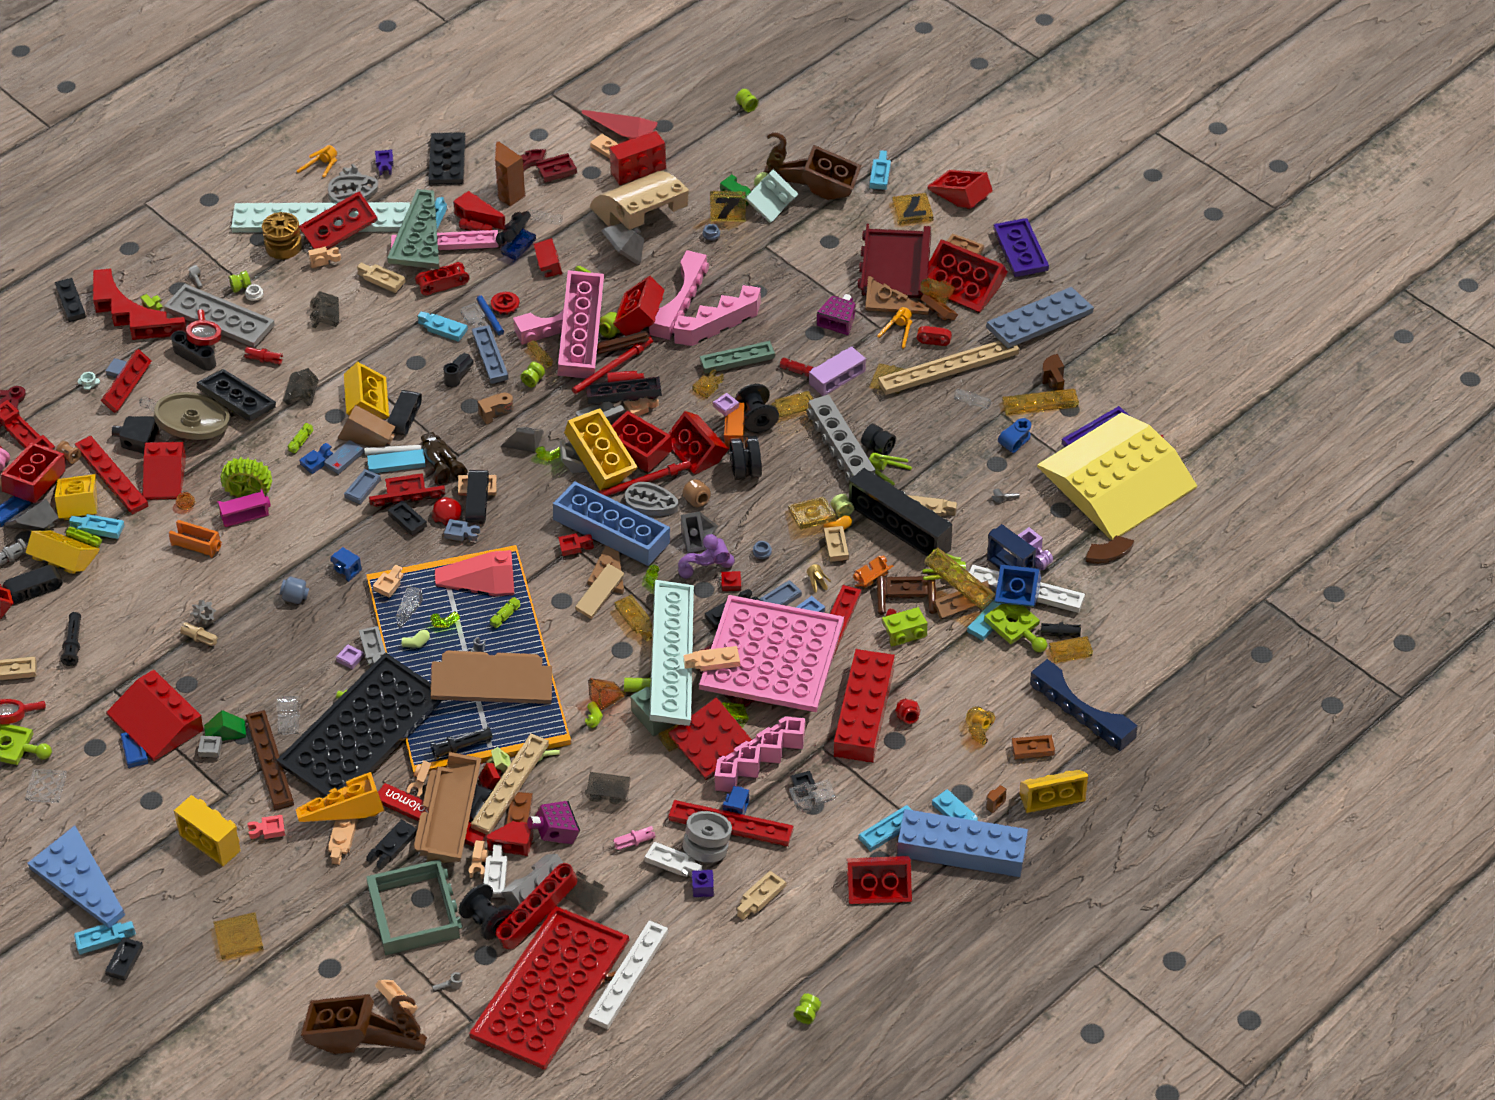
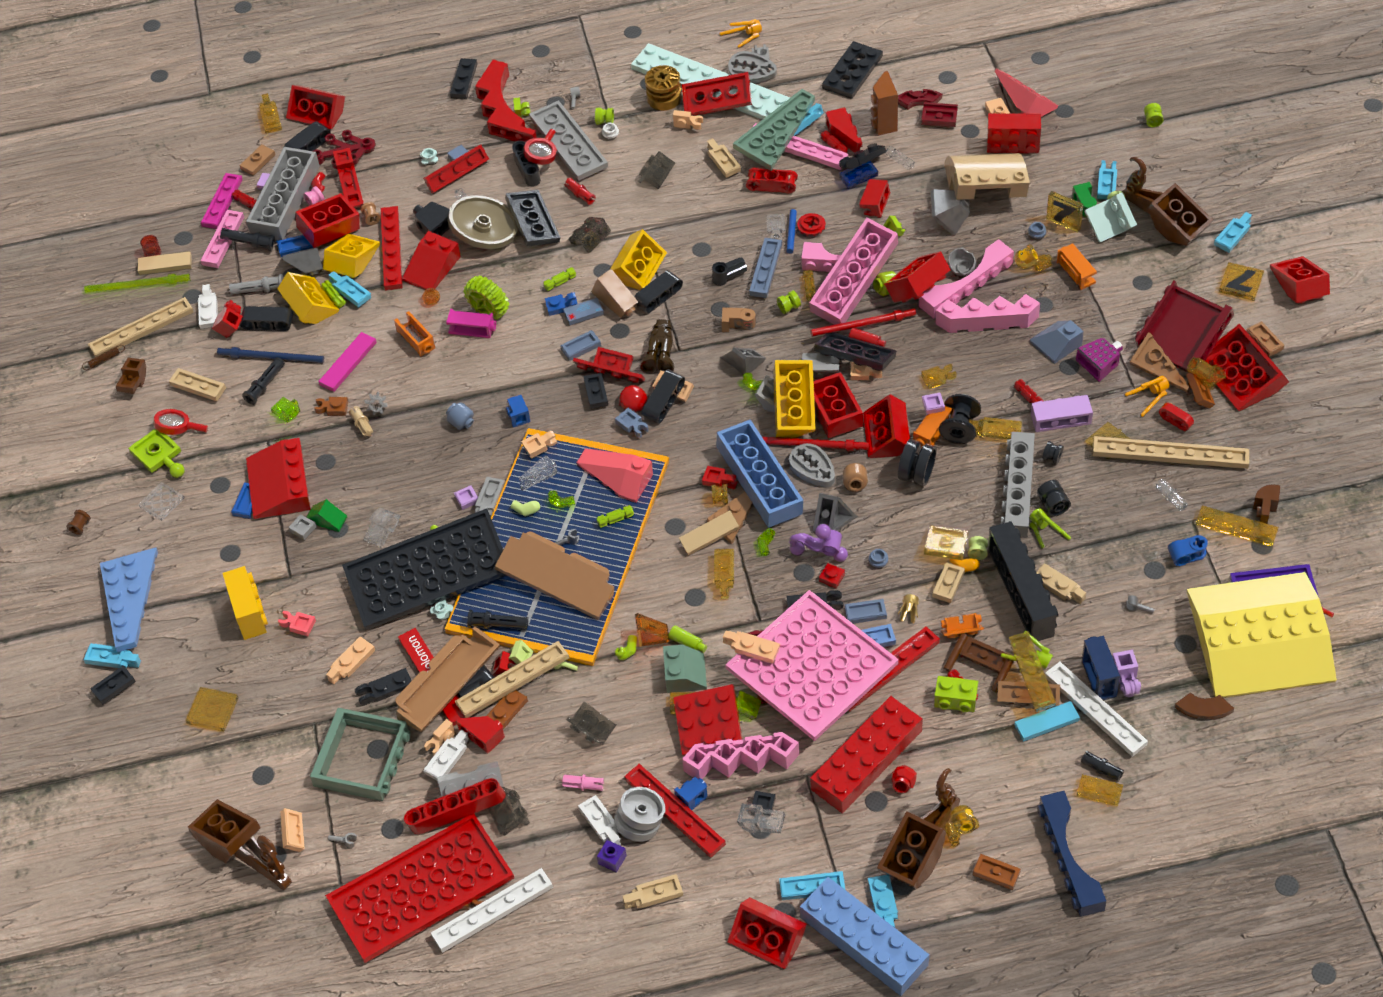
camera: 35 degrees right, 5 degrees up
(23, 626) = (236, 352): none -> dark blue bar
(113, 655) = (286, 409): none -> clear neon green bracket
(143, 590) = (347, 362): none -> dark pink tile
(159, 632) = (334, 407): none -> dark orange plate
(268, 755) = (344, 553): reddish brown tile -> none
(353, 801) = (373, 633): light orange wedge -> none
(384, 161) = (796, 51): dark purple plate -> none
(391, 449) = (627, 322): white bar -> none
(396, 461) = (622, 334): medium azure tile -> none
(402, 758) = (442, 610): none -> light aqua plate
(421, 774) = (446, 634): light nougat plate -> none
(442, 326) = (745, 225): medium azure hinge -> none
(477, 906) = (408, 780): black hose -> none
(555, 822) = (523, 734): magenta torso -> none
(585, 556) = (719, 494): none -> clear yellow wheel
(622, 342) = (887, 304): reddish brown axle -> none
(667, 280) = (961, 262): none -> light grey hair
(670, 641) = (731, 612): light aqua plate -> none
(721, 257) = (1029, 257): none -> clear yellow piece
(737, 357) = (980, 361): sand green plate -> none
(743, 168) = (1106, 180): none -> medium azure hinge
(766, 247) = (1076, 266): none -> orange window
(792, 313) = (1058, 340): none -> sand blue slope
(851, 405) = (1053, 452): none -> black wheel
(959, 747) = (919, 840): none -> reddish brown slope
(996, 798) = (926, 907): dark orange plate -> none
(1015, 630) = (1065, 746): lime plate -> none
(1018, 585) = (1081, 705): blue slope -> none
(1020, 247) = (1320, 362): dark purple plate -> none
(1039, 317) = (1291, 440): sand blue plate -> none
(1054, 790) = (984, 925): yellow slope -> none

